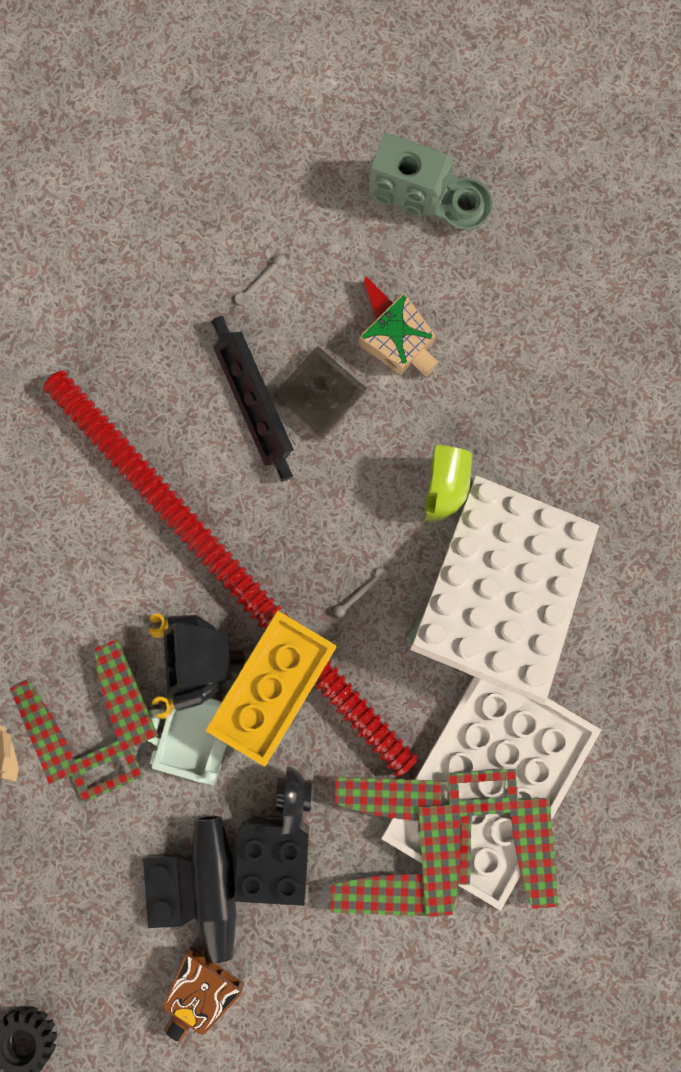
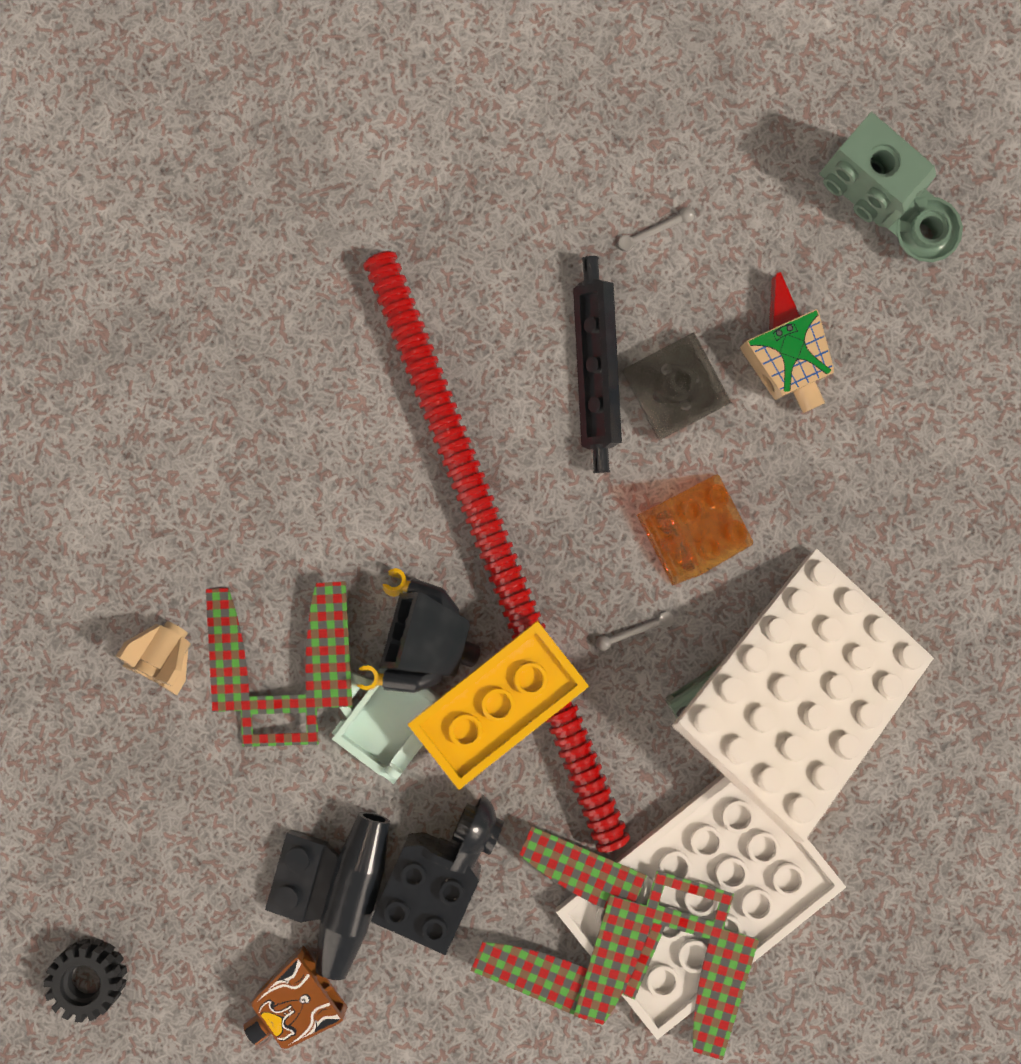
camera: 20 degrees right, 5 degrees up
(376, 495) = (695, 530): none -> clear orange bracket
(448, 482) = (782, 547): lime brick -> none

